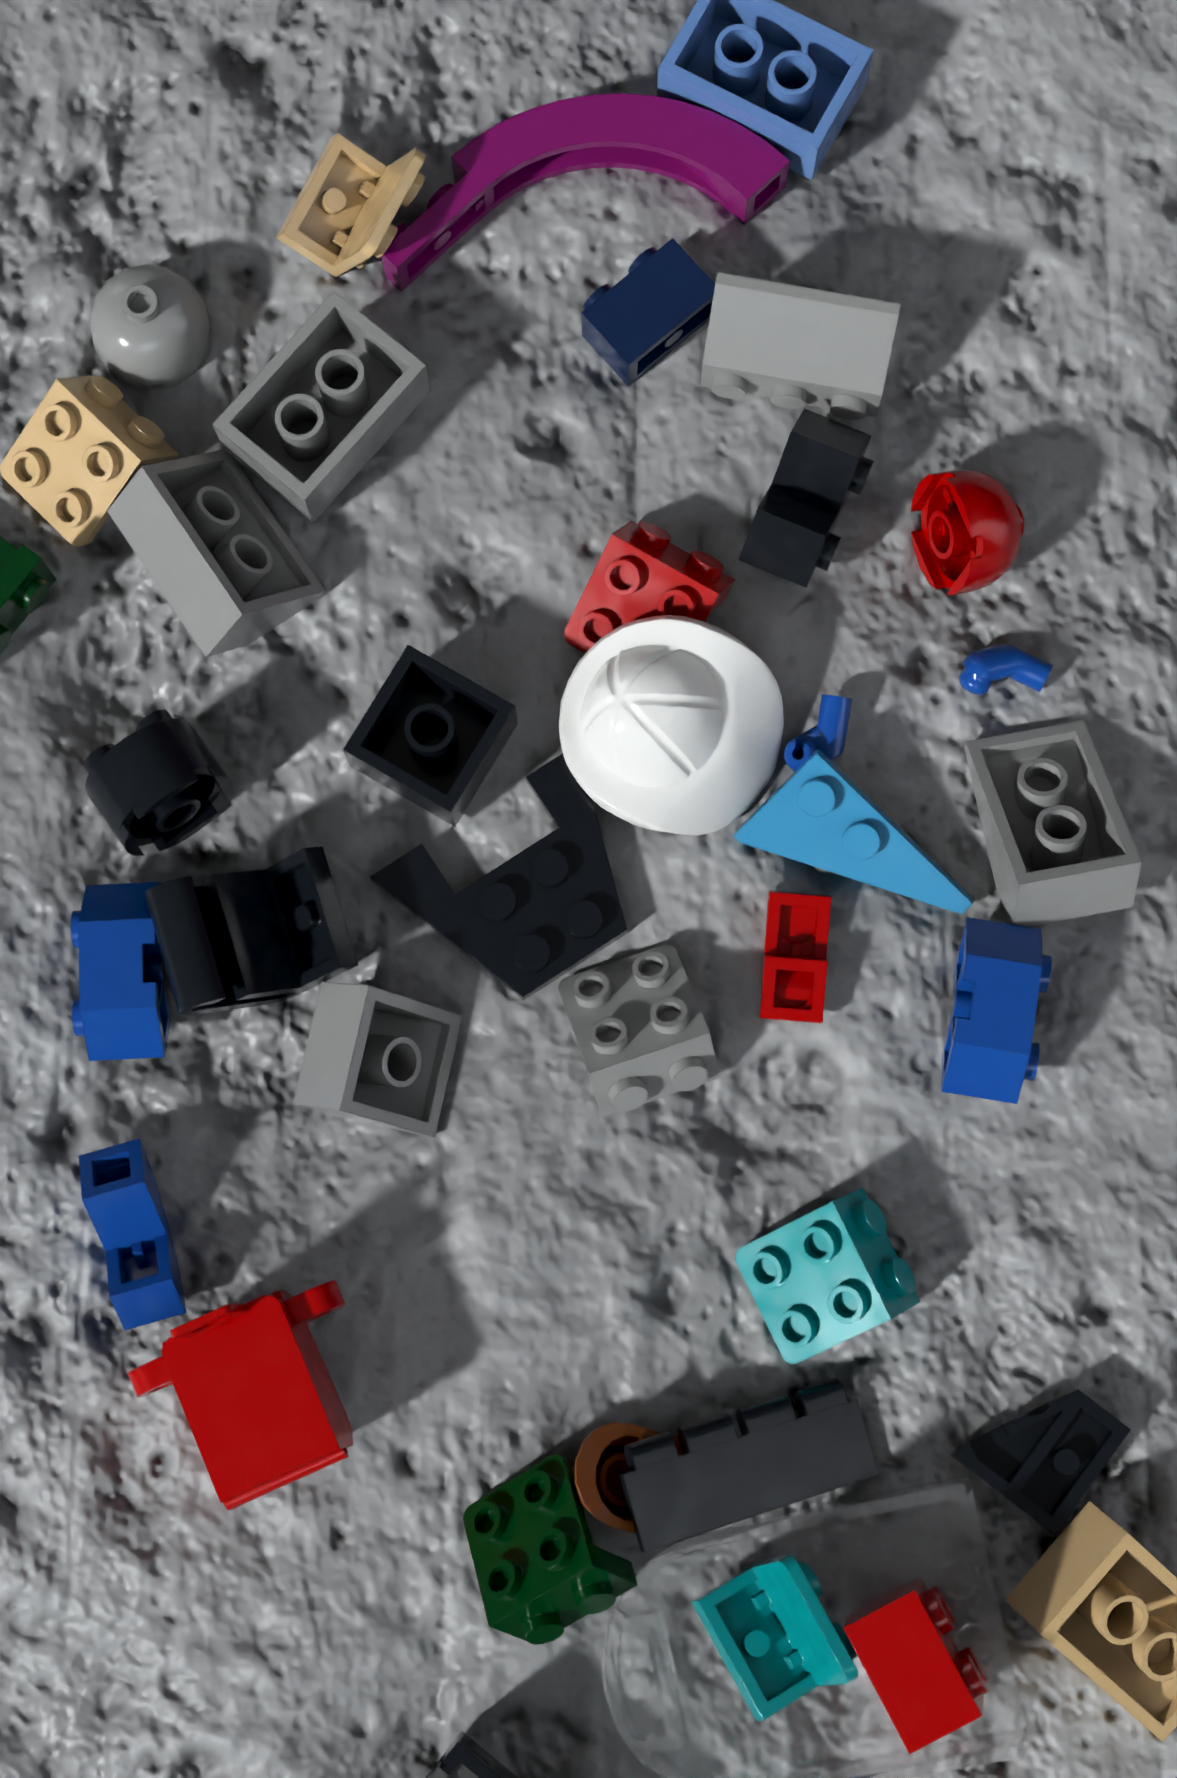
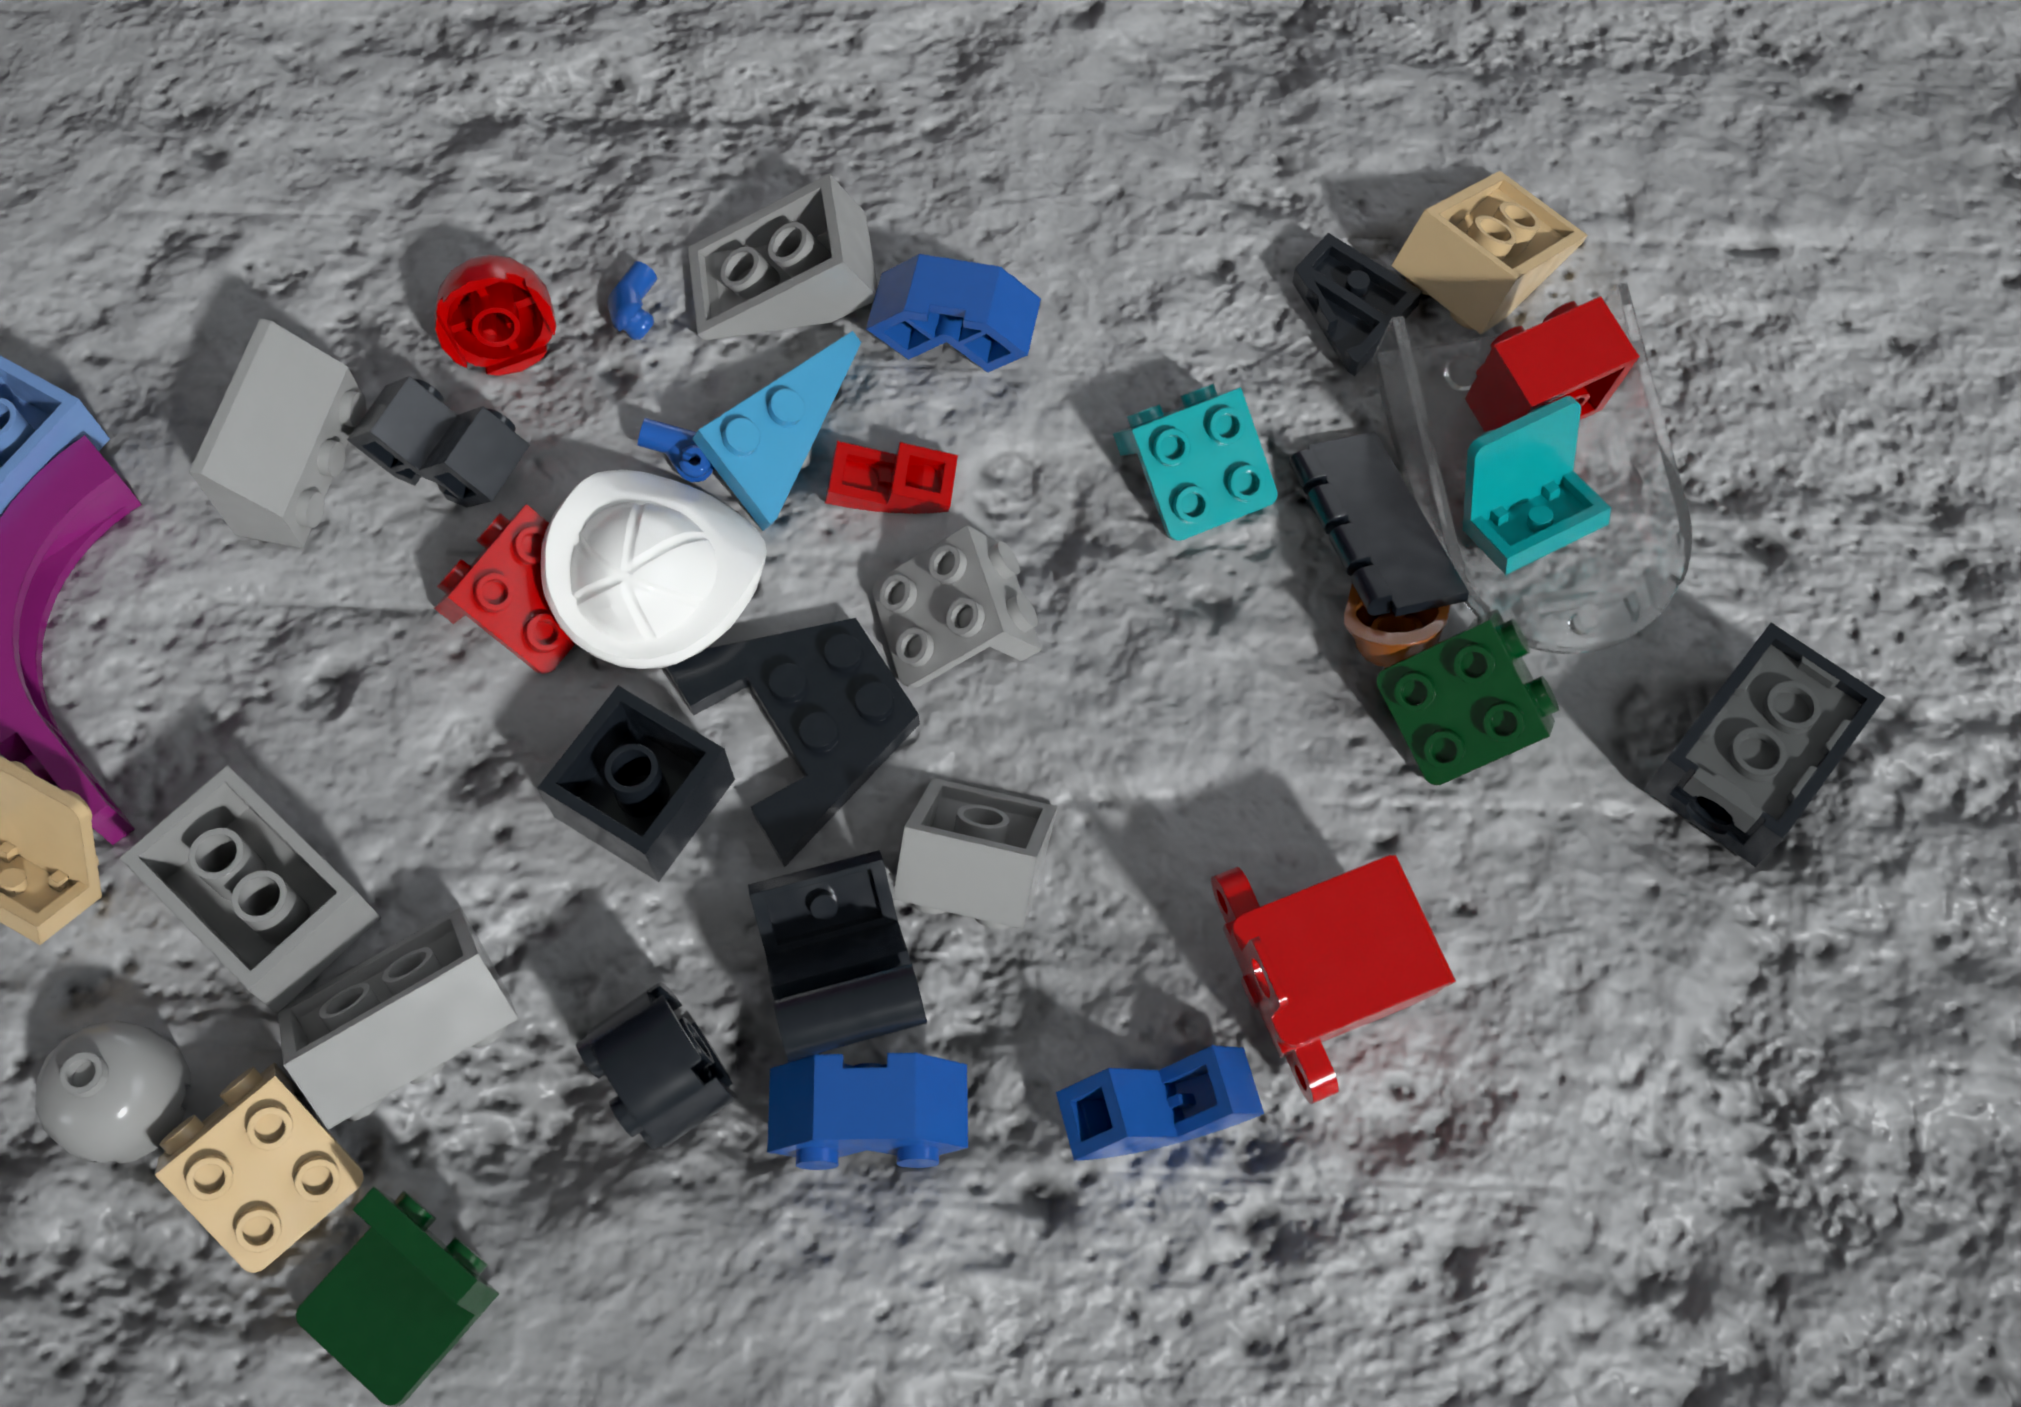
camera: 90 degrees left, 15 degrees down
(648, 311) = (213, 577): dark blue brick -> none

